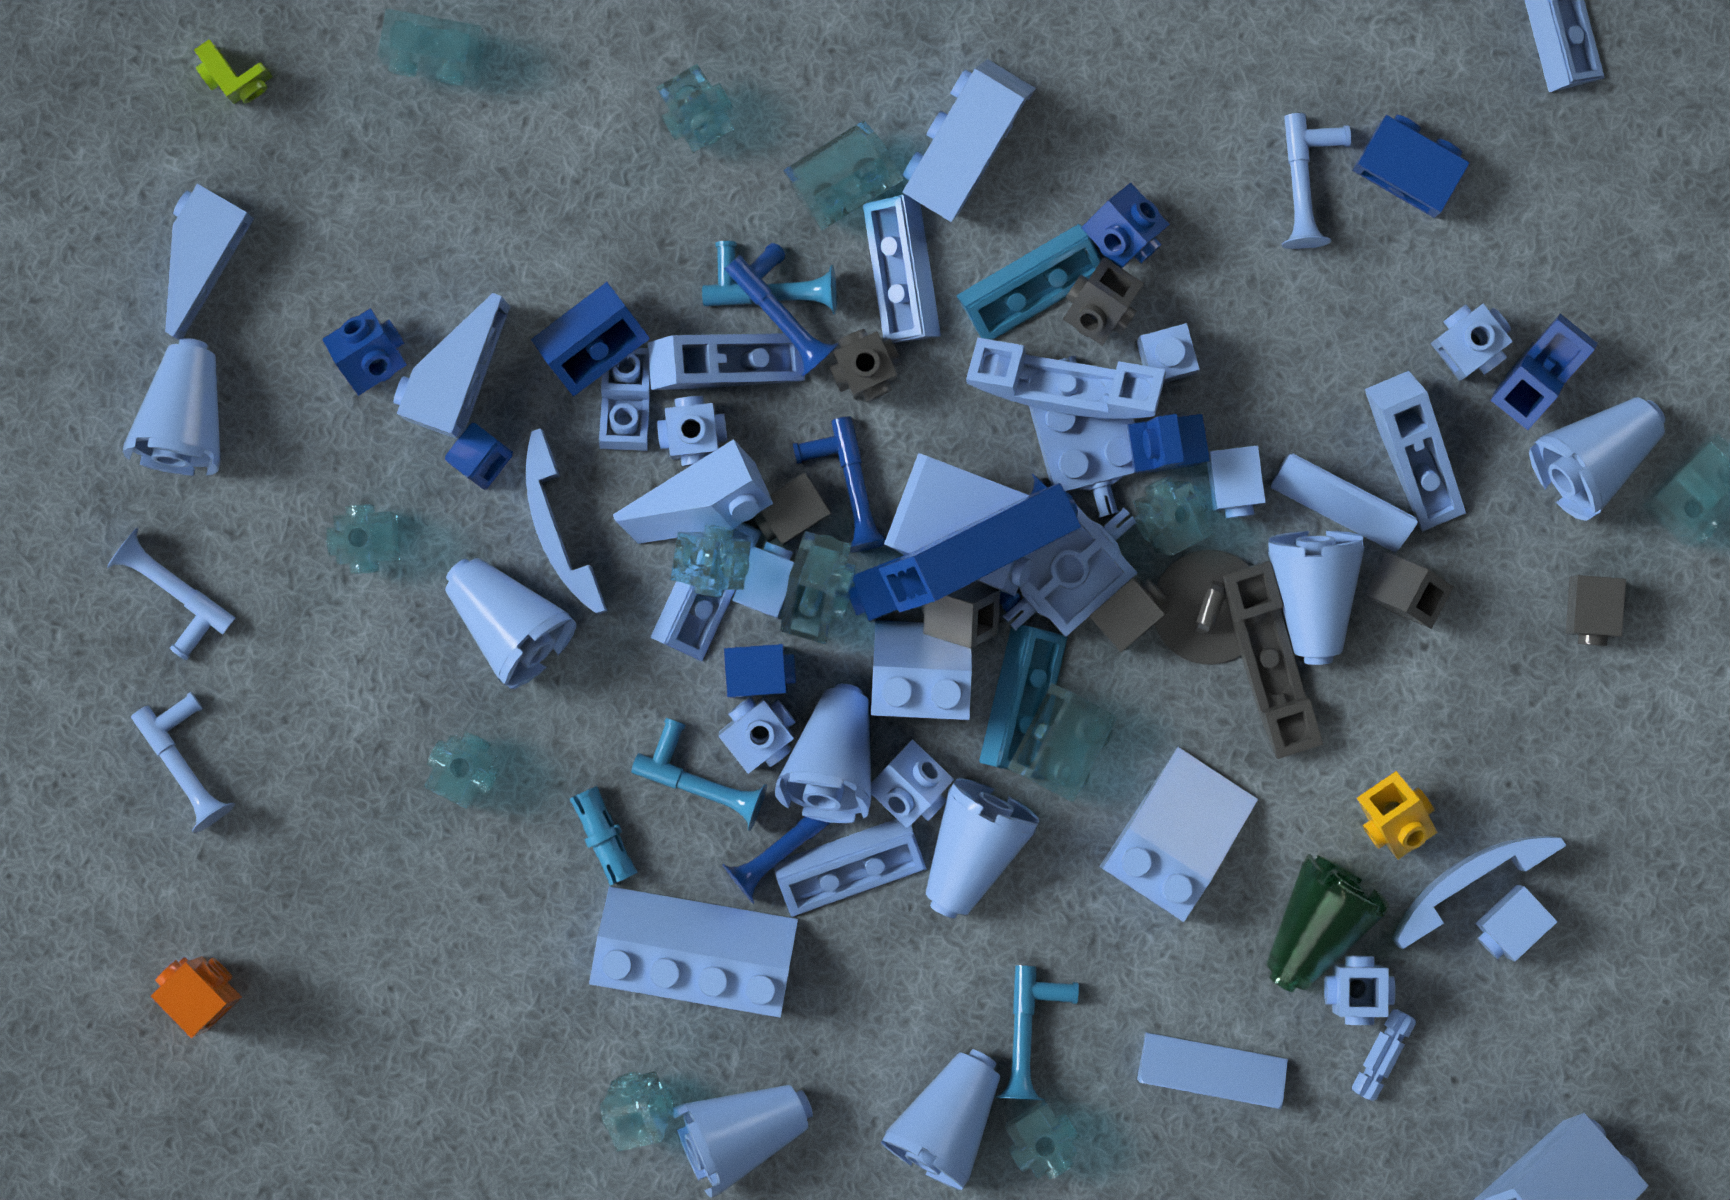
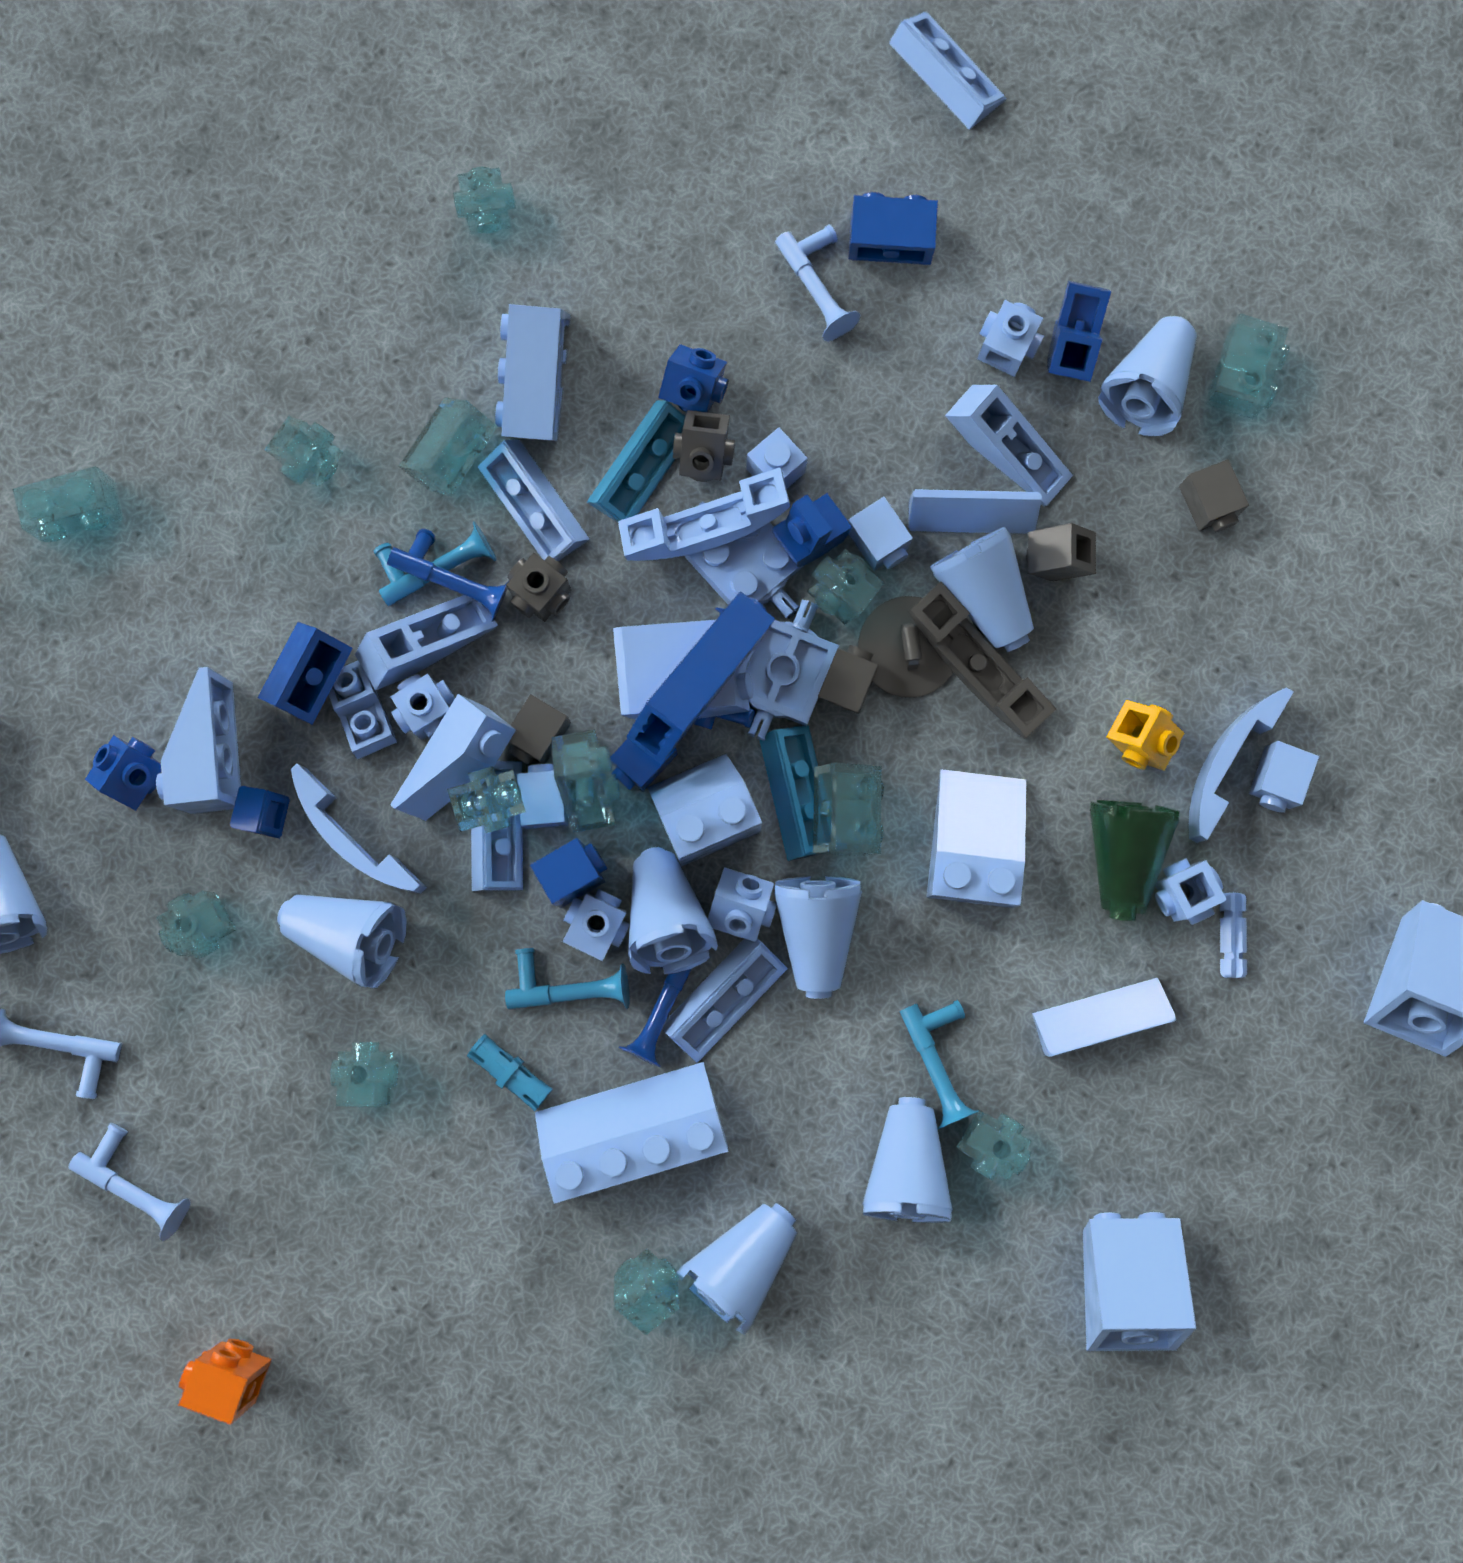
camera: 25 degrees left, 5 degrees down
(846, 446) = (554, 659): blue piece -> none
(964, 616) = (713, 744): dark grey brick -> none

